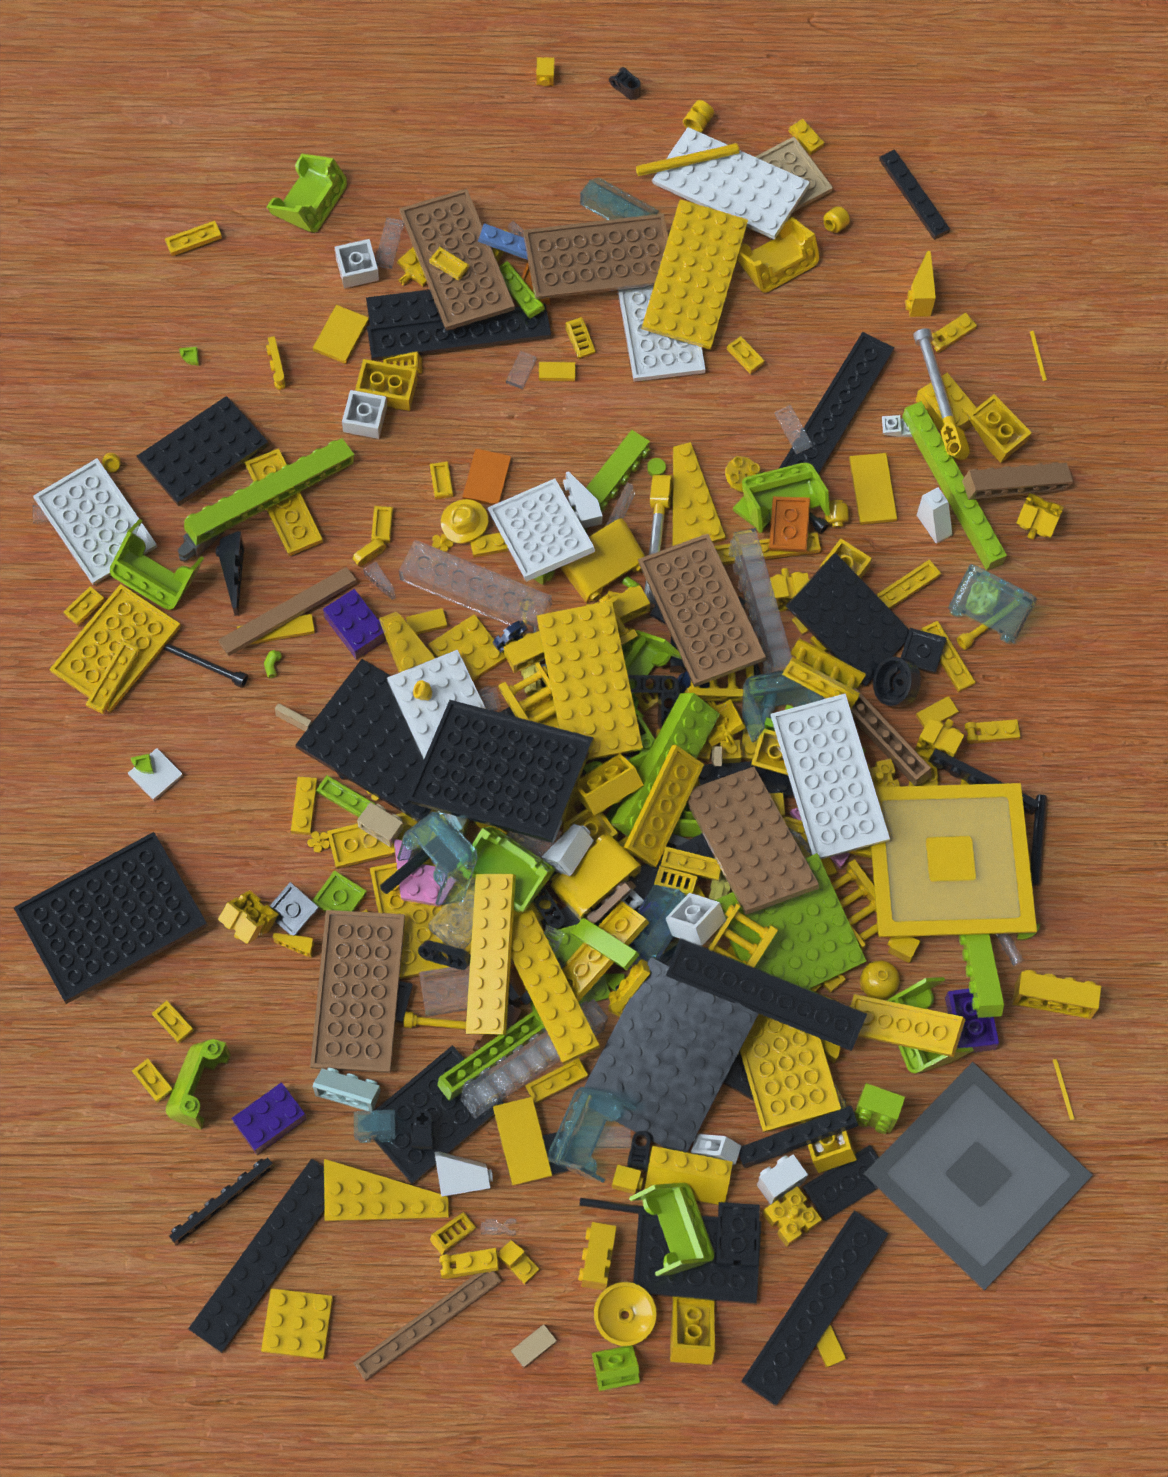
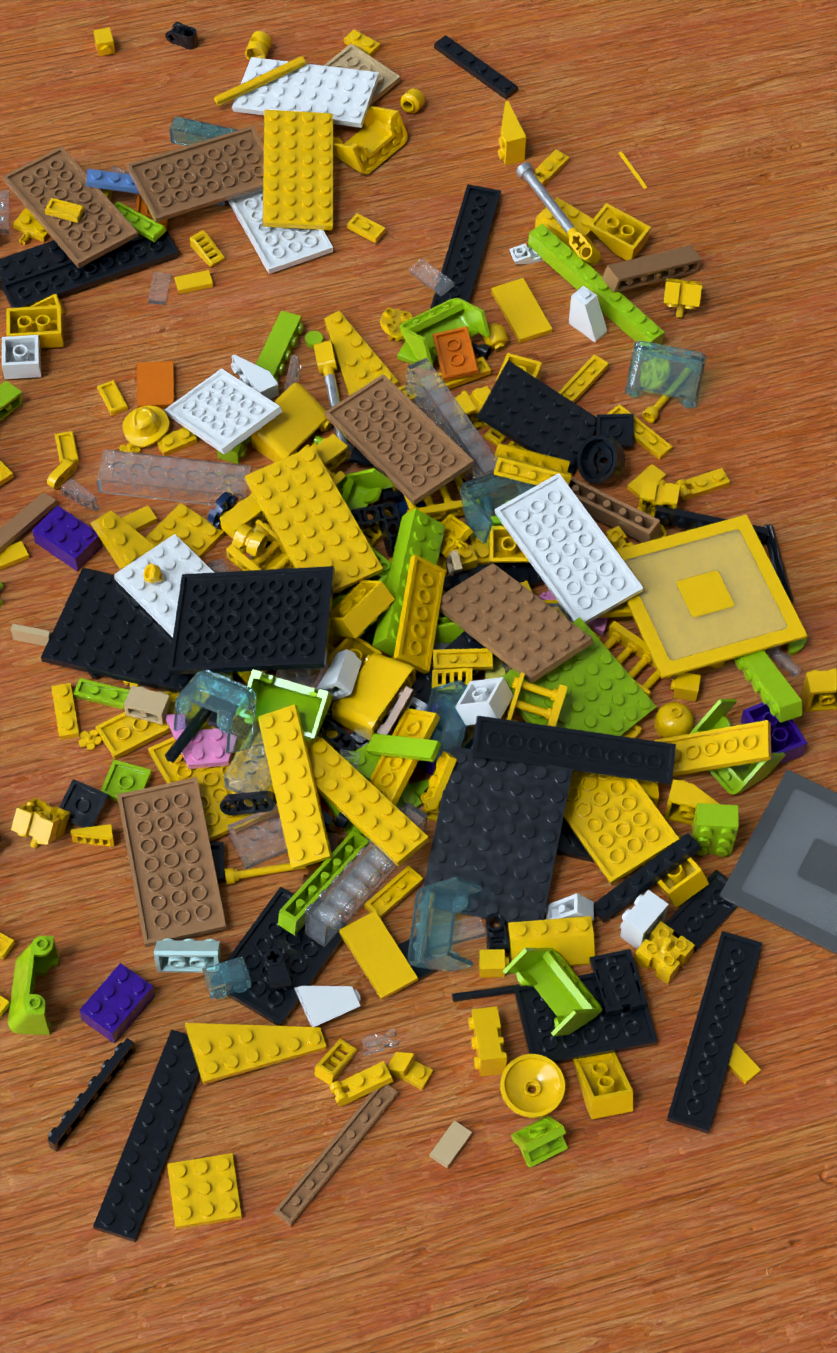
camera: 15 degrees left, 10 degrees down
(525, 685) = (251, 541): none -> yellow wheel
(862, 1069) = (683, 801): none -> yellow slope

